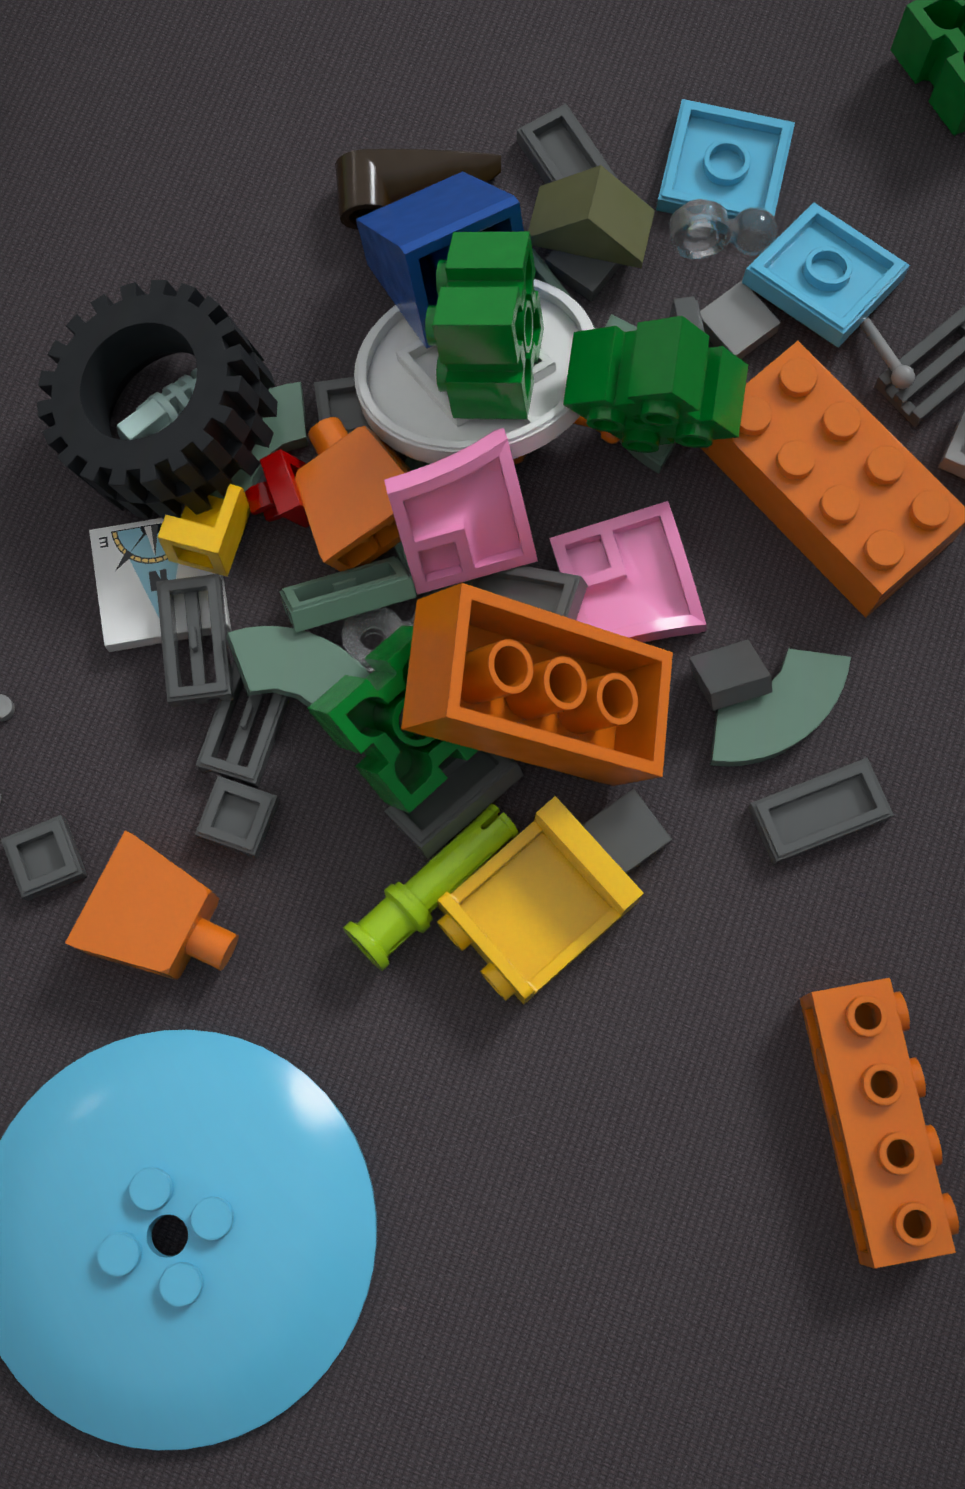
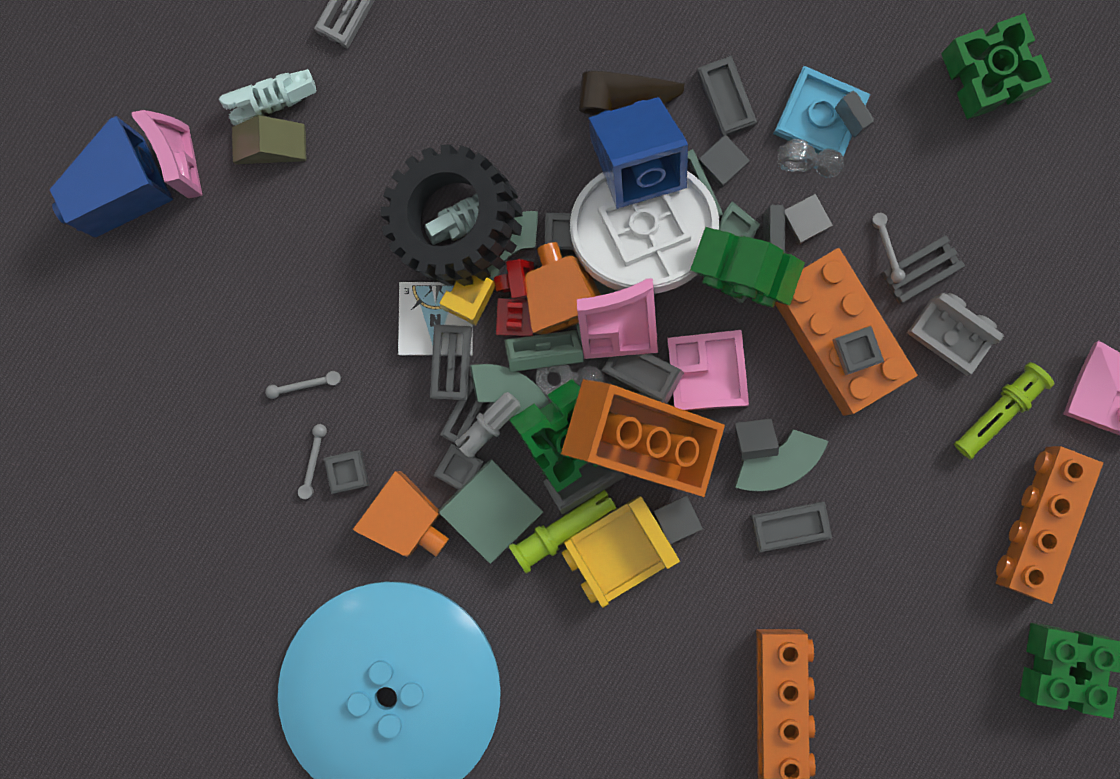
camera: 15 degrees right, 10 degrees up
(273, 726) = (488, 424): none -> light grey axle
(289, 555) = (513, 318): none -> red tile
(302, 875) = (490, 511): none -> sand green tile
(486, 325) = (654, 214): green brick -> none
(592, 218) = (731, 140): olive slope -> none
(776, 145) = (854, 114): none -> dark grey tile
(825, 274) = (866, 199): medium azure tile -> none
(866, 486) = (858, 350): none -> dark grey tile

